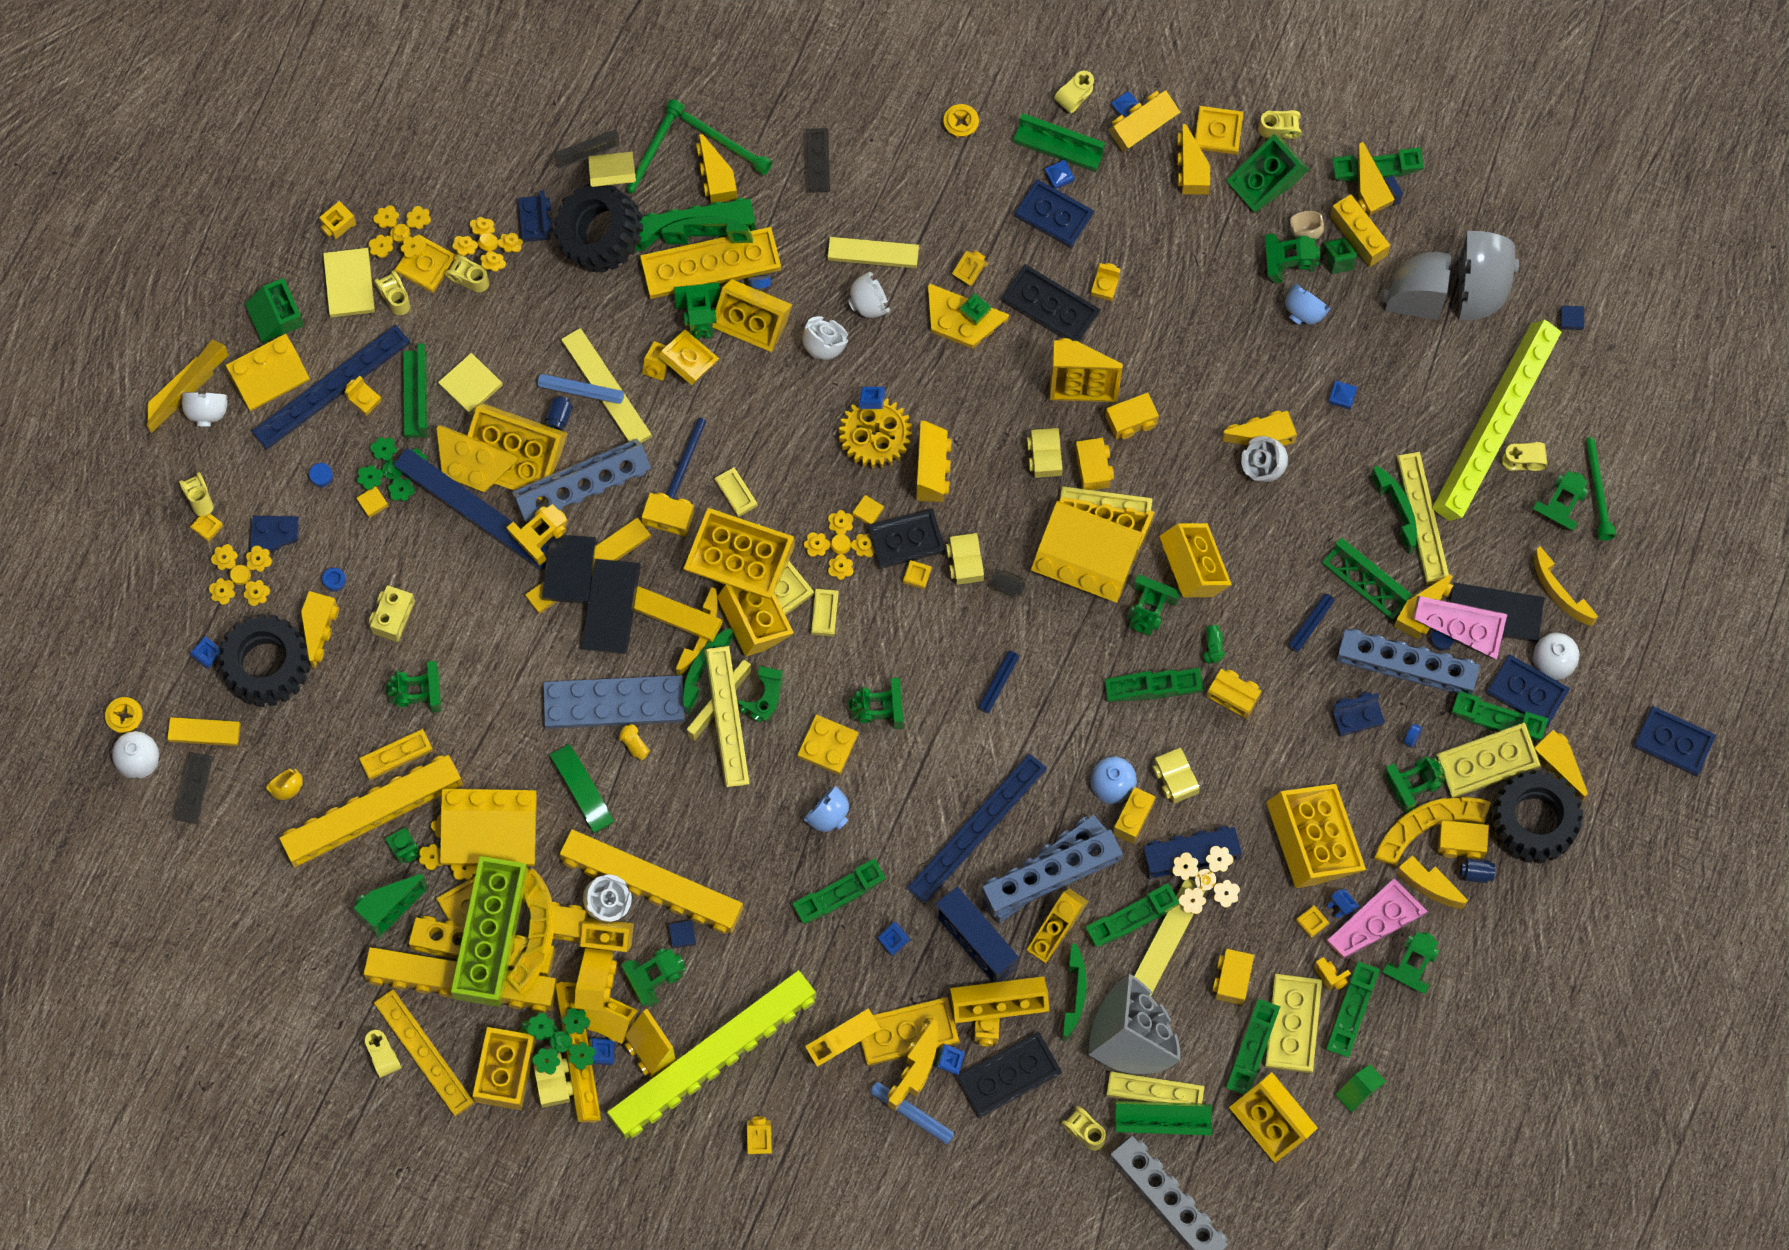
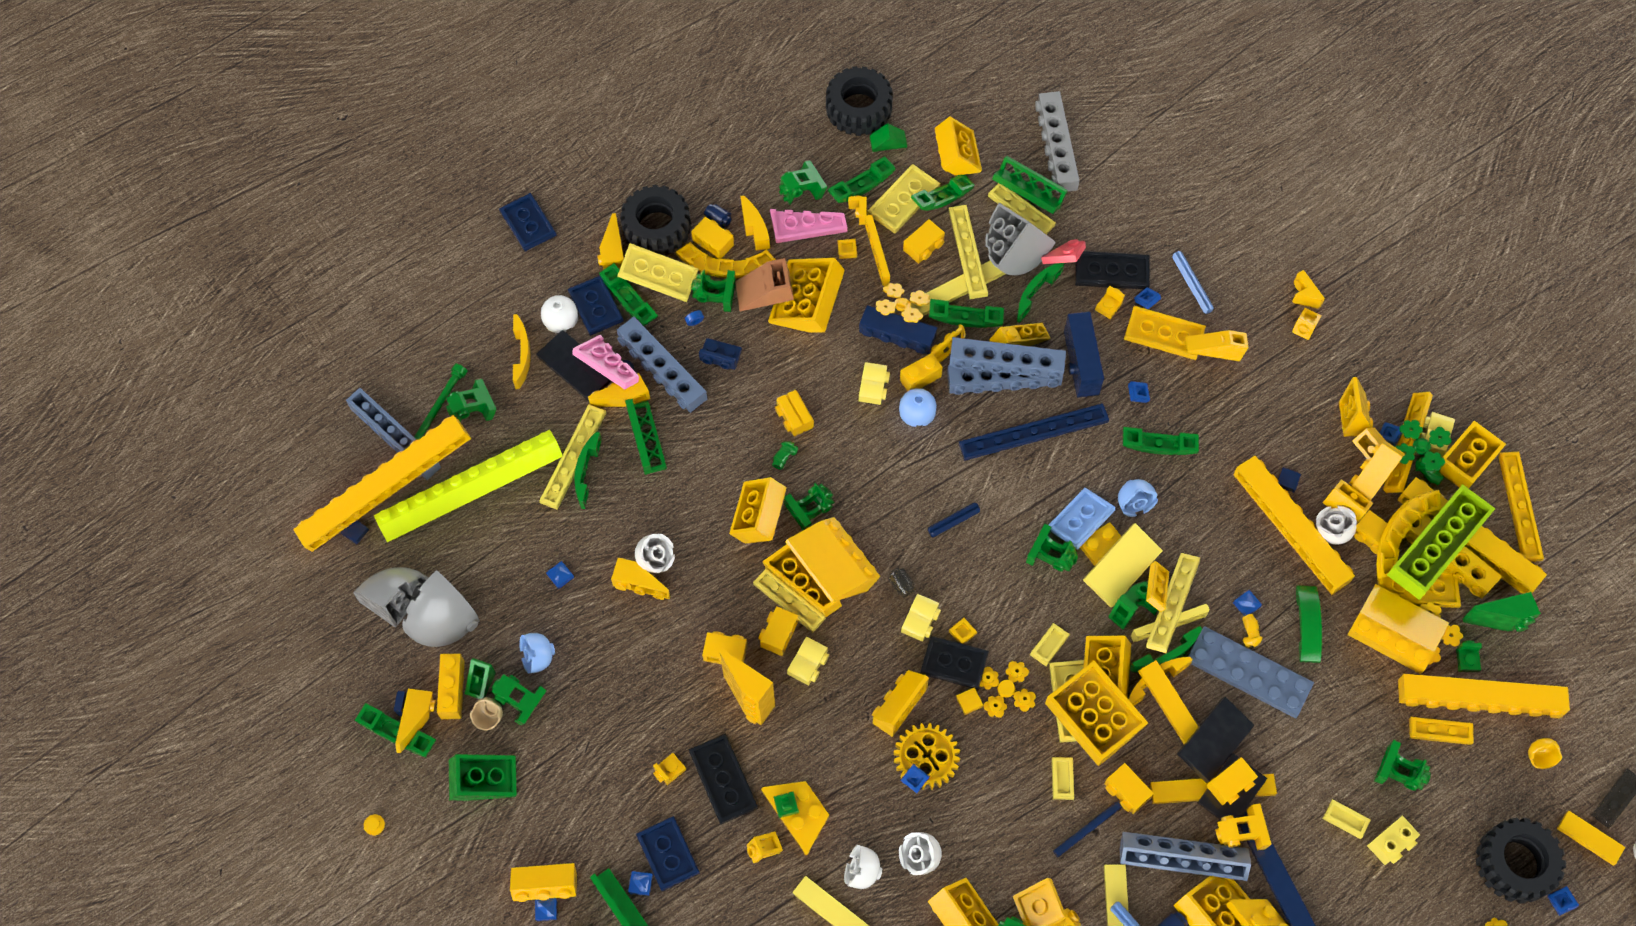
camera: 145 degrees left, 5 degrees down
(317, 619) = (1461, 870): yellow slope -> none
(334, 579) = (1427, 901): blue tile -> none
(383, 1057) = (1554, 519): light yellow piece -> none
(446, 612) = (1346, 819): none -> light yellow tile
(573, 566) = (1232, 781): none -> yellow brick
(653, 771) = (1247, 603): none -> blue tile
(669, 965) = (1315, 458): green tile -> none
(711, 1055) = (1309, 387): neon yellow brick -> none
(751, 721) = (1157, 586): none -> yellow tile
(773, 1171) = (1309, 293): none -> yellow slope
(799, 730) = (1122, 565): none -> light yellow tile
(871, 758) = (1081, 518): none -> light blue tile
(921, 1058) = (1170, 300): yellow slope -> none
(999, 999) = (1103, 314): yellow brick -> none
(1069, 1053) = (1065, 253): none -> coral wing
(1081, 1126) = (1085, 211): light yellow piece -> none
(1128, 878) = (938, 350): none -> yellow piece
(1154, 685) = (845, 452): green slope -> none
(1179, 995) = (968, 252): none -> light yellow tile
(1195, 167) = (534, 817): yellow slope -> none
(1219, 130) = (490, 842): yellow tile -> none
(1277, 934) = (877, 250): none -> yellow tile
(1283, 122) = (439, 810): light yellow piece -> none
(1311, 622) = (705, 431): dark blue axle -> none
(1331, 81) = (374, 824): none -> yellow plate
(1344, 901) = (819, 245): blue tile -> none
(1363, 810) = (765, 286): none -> nougat slope
(1443, 1082) = (862, 82): none -> black tyre
(1525, 456) = (471, 452): light yellow piece -> none
(1575, 362) = (381, 483): none -> yellow brick
(1613, 424) = (384, 425): none -> sand blue brick

